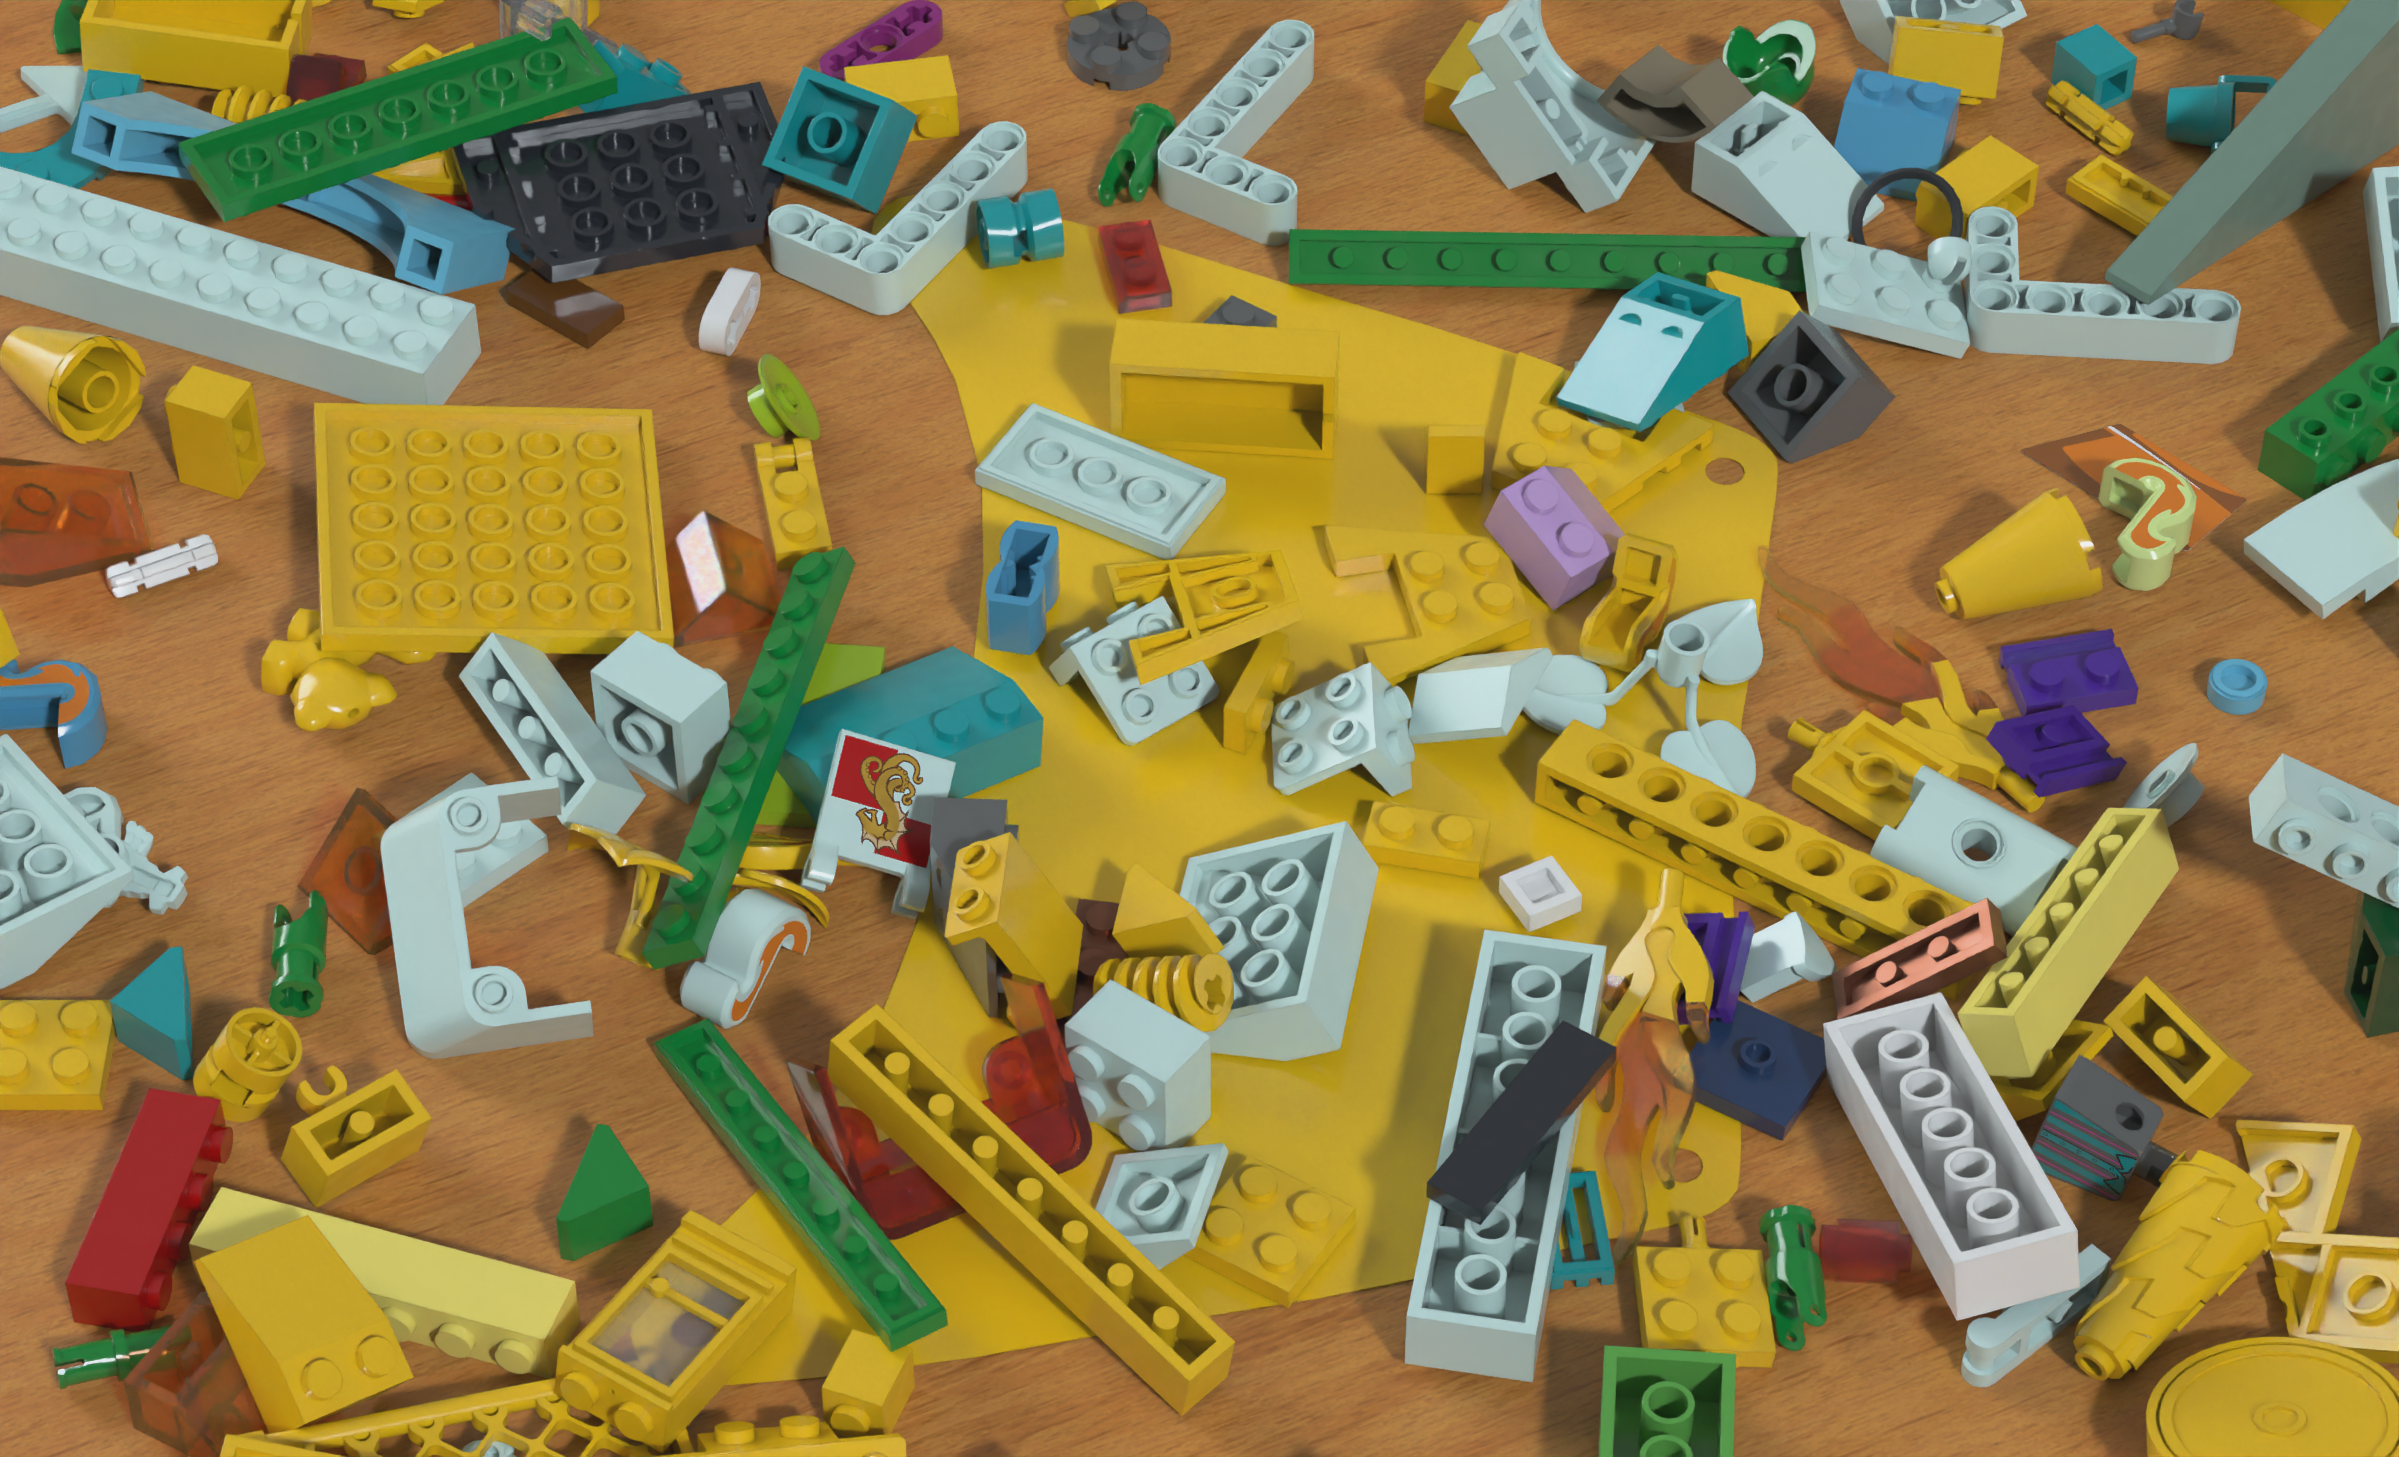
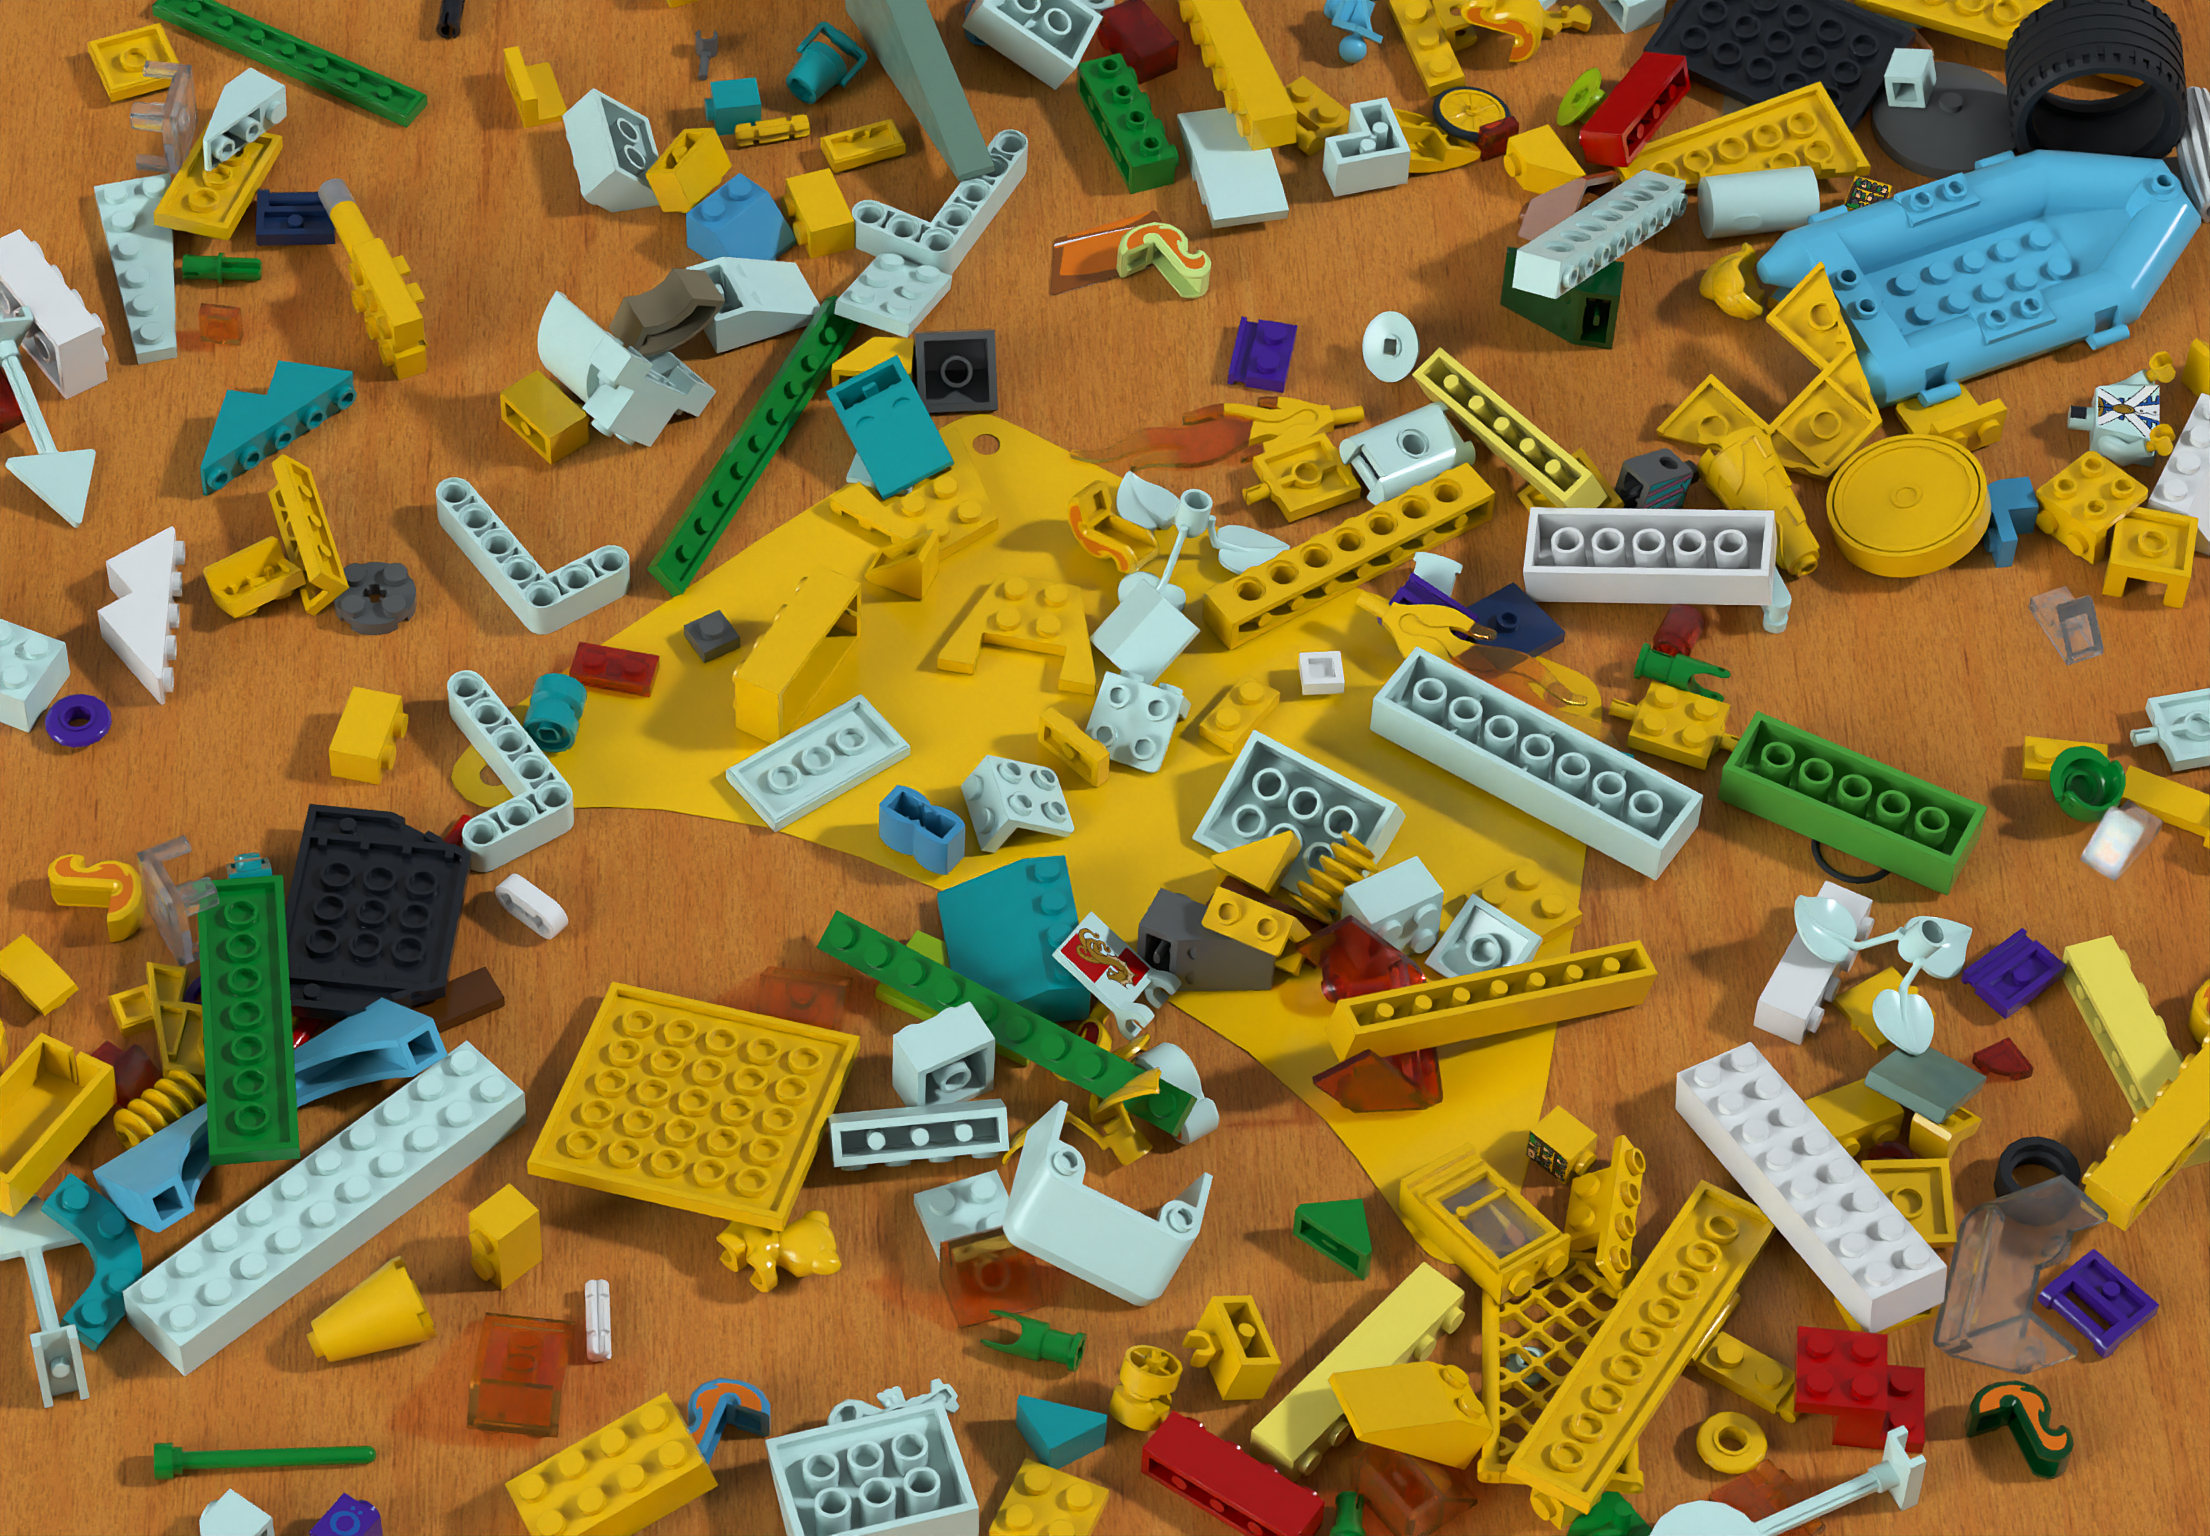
camera: 70 degrees left, 5 degrees up
(782, 401) = (651, 907): lime piece -> none
(792, 501) = (740, 936): yellow plate -> none
(801, 1185) = (1383, 1124): green tile -> none
(840, 140) = (414, 775): teal brick -> none
(909, 29) = (287, 745): magenta beam -> none
(1136, 154) = (503, 623): green piece -> none
(1218, 600) = (1000, 721): yellow wing -> none
(1521, 1122) = (1545, 736): black tile -> none
(1555, 533) = (1027, 542): lavender slope -> none
(1775, 61) = (641, 254): green helmet -> none
(1906, 173) = (800, 246): black tyre -> none
(1922, 961) = (1493, 512): copper plate -> none
(1949, 259) = (897, 247): light aqua hinge -> none
(2022, 563) = (1176, 325): yellow cone -> none
(2055, 750) = (1336, 383): dark purple plate -> none
(2178, 1047) = (1604, 426): yellow brick -> none
(2237, 686) = (1313, 282): medium azure tile -> none

